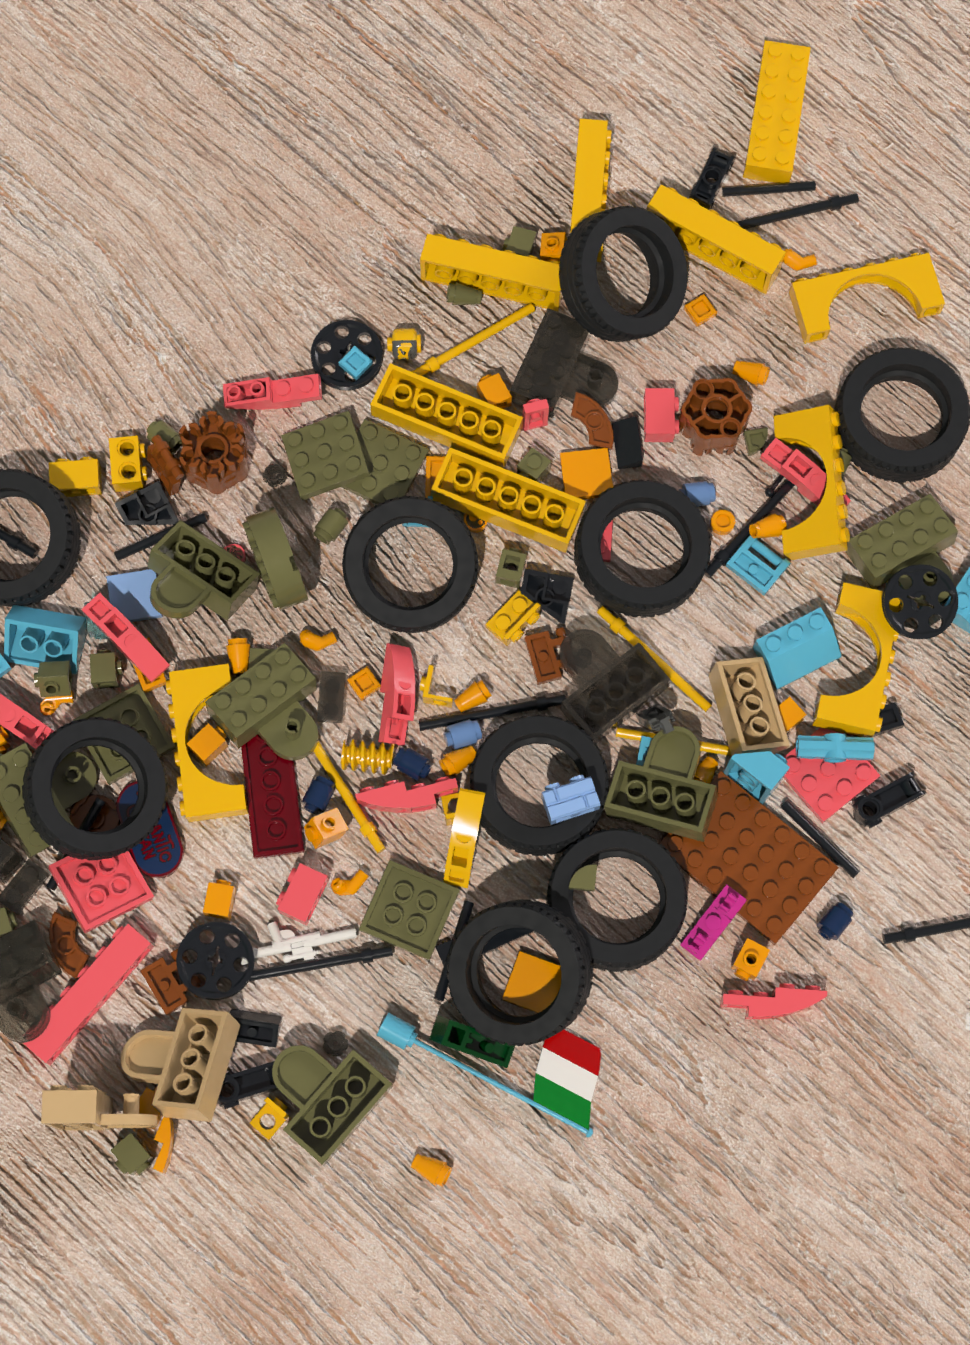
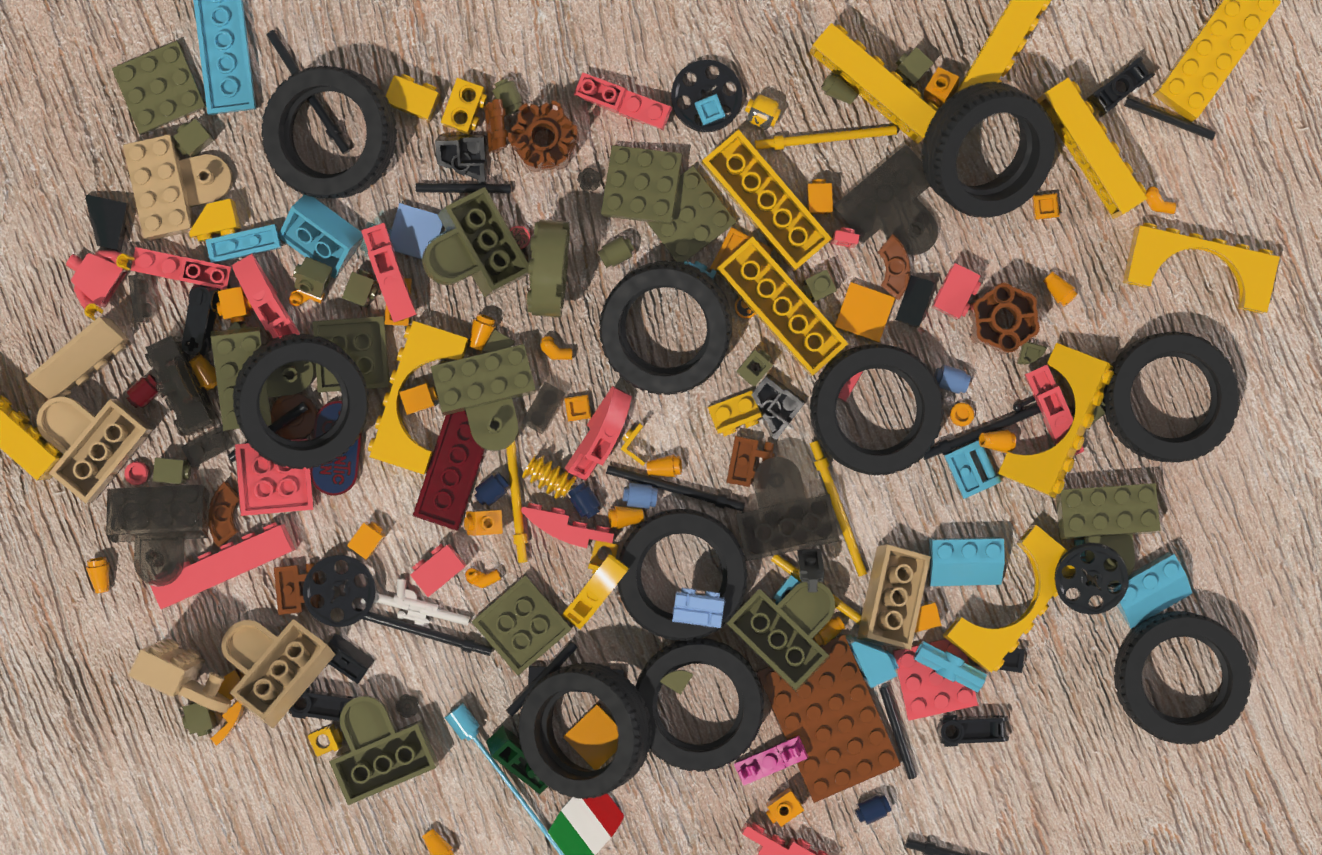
camera: 30 degrees right, 15 degrees up
(833, 203) = (1221, 162): black bar -> none

